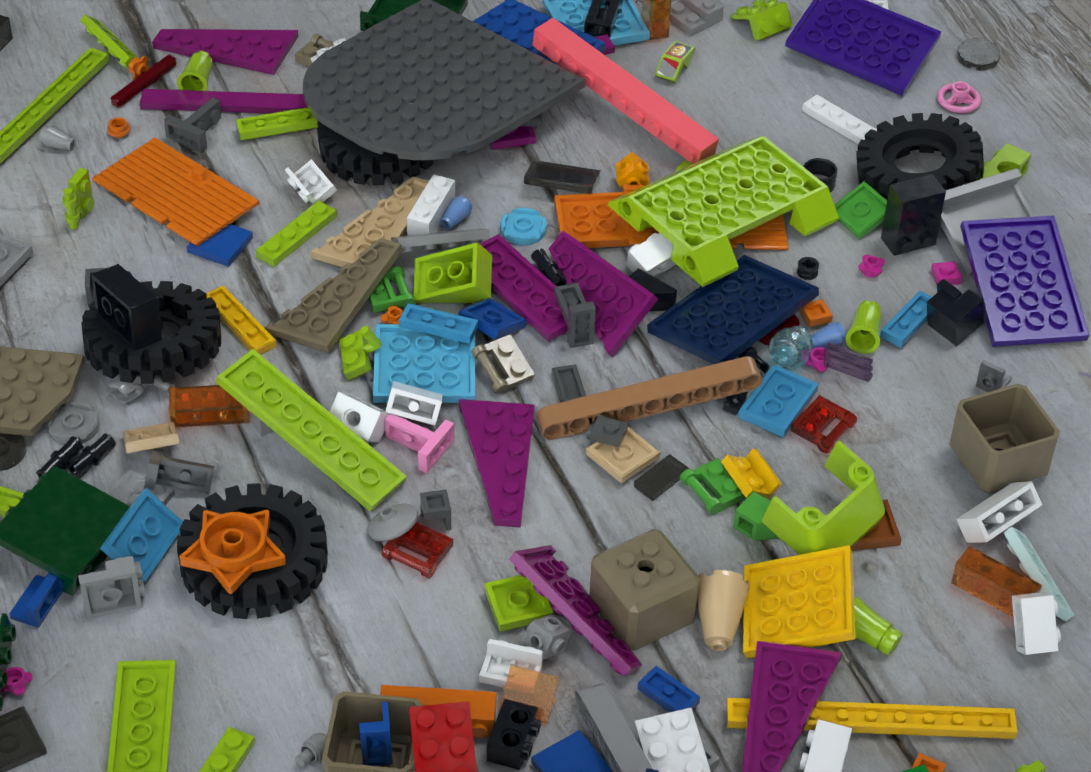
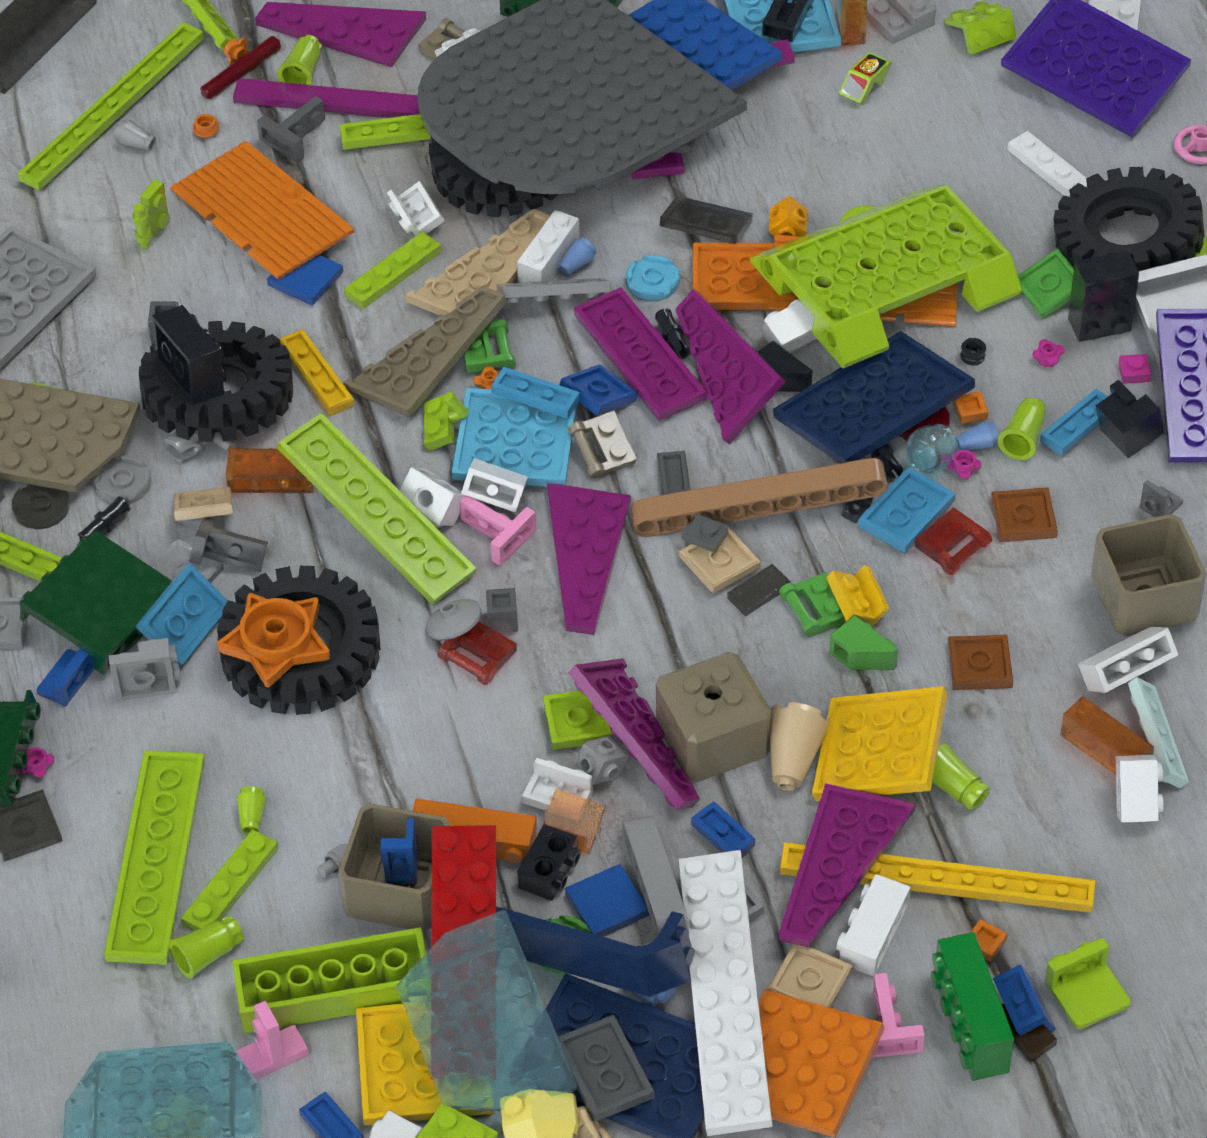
camera: 10 degrees right, 5 degrees up
(91, 455) = (138, 519): black pin -> none
(225, 707) = (251, 806): none -> lime cone
(454, 275) = (561, 336): lime slope -> none
(577, 314) = (692, 392): dark grey bracket -> none
(625, 91) = (792, 118): coral brick -> none
(823, 167) = (1013, 225): black piece -> none
(846, 524) = (948, 659): lime windscreen -> none
(848, 362) = (995, 467): clear purple tile -> none
(879, 398) = (1024, 514): none -> dark orange tile

